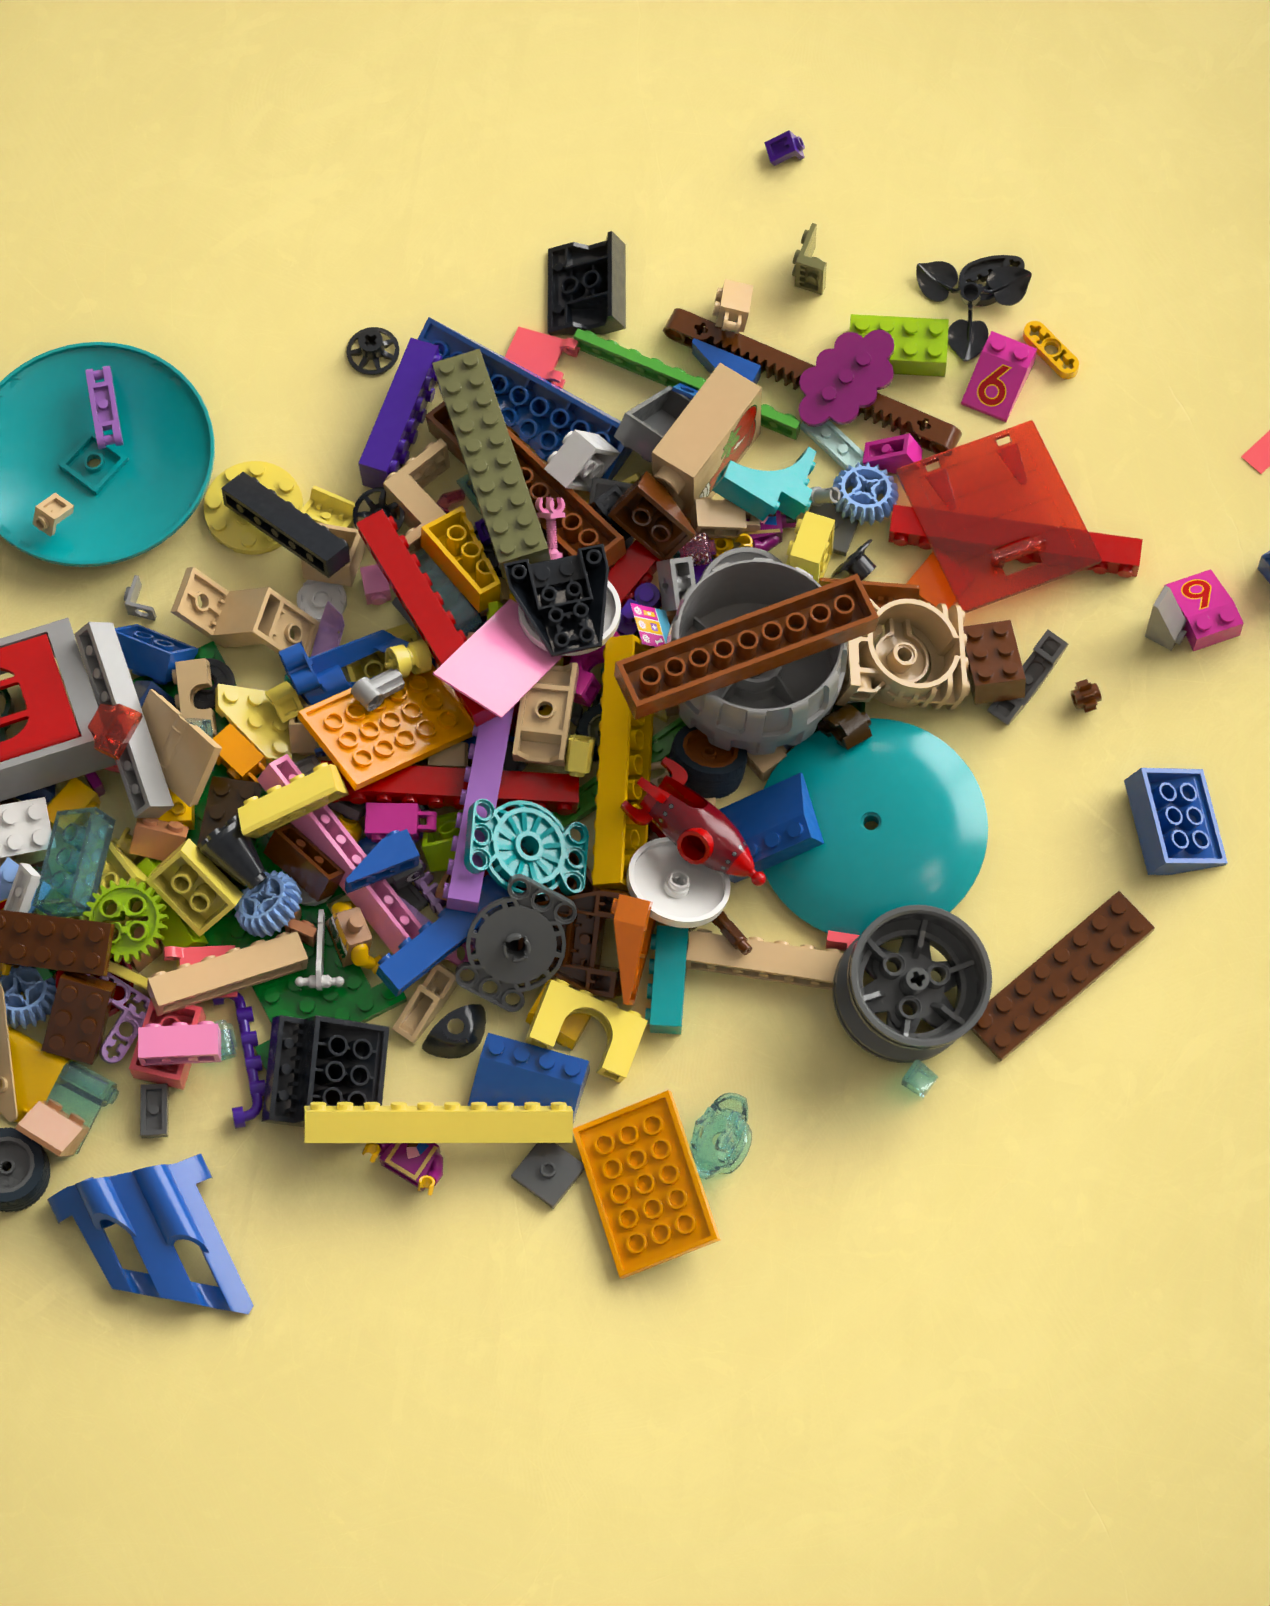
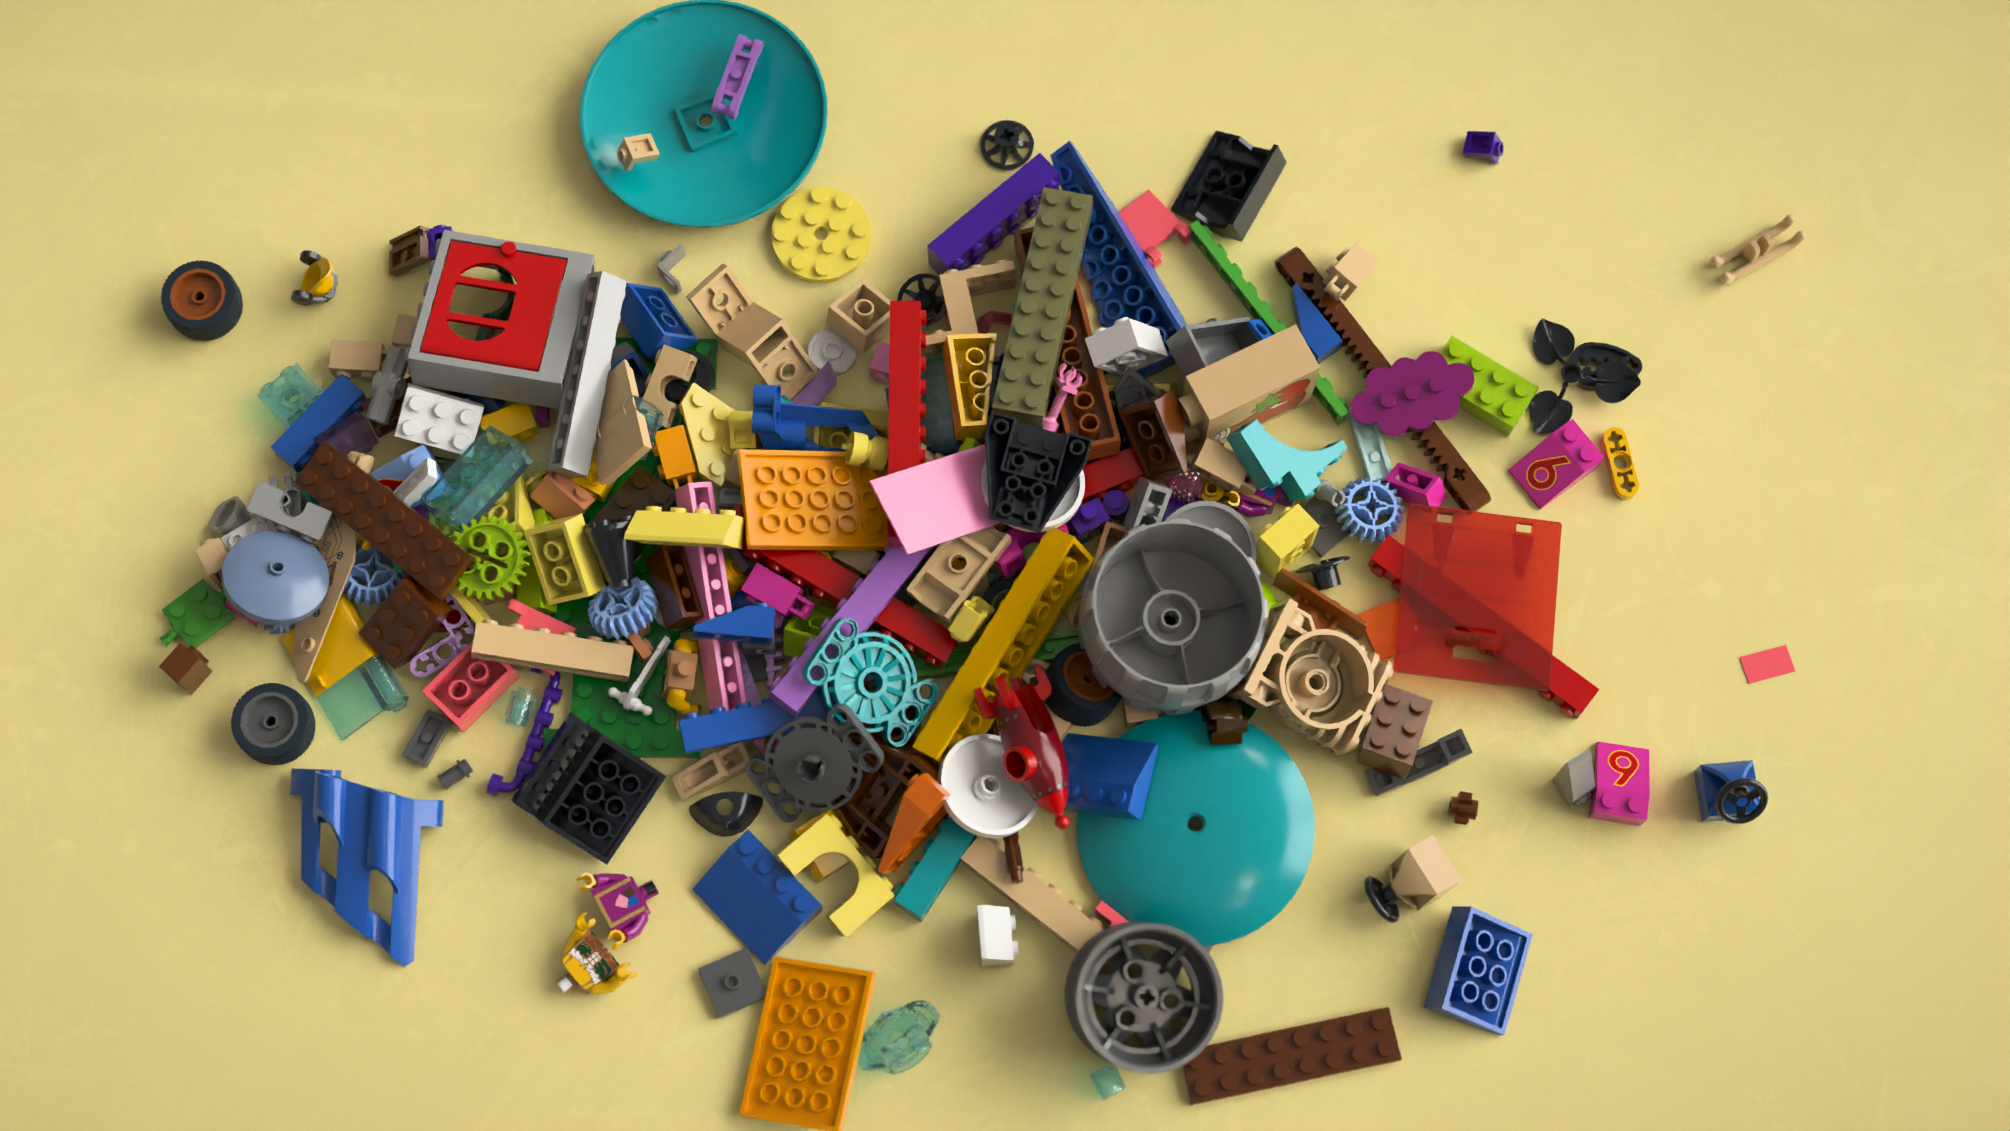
camera: 25 degrees right, 5 degrees up
(54, 1128) = (328, 709): slope -> none
(113, 728) = (568, 379): clear red slope -> none
(179, 1043) = (474, 693): bright pink brick -> none
(197, 1127) = (455, 773): none -> dark grey pin
(286, 524) = (833, 268): black brick -> none
(329, 508) = (881, 272): light yellow bracket -> none
(374, 691) = (817, 465): light grey piece -> none
(414, 1220) = (590, 962): none -> torso
(438, 1123) = (655, 890): light yellow brick -> none
(651, 624) = (1100, 533): sticker -> none
(745, 646) = (1156, 610): dark orange brick -> none
(753, 1009) = (995, 935): none -> white slope
(809, 270) = (1436, 273): olive bracket -> none
(1064, 119) = (1757, 251): none -> tan piece
(1081, 769) = (1415, 877): none -> tan piece

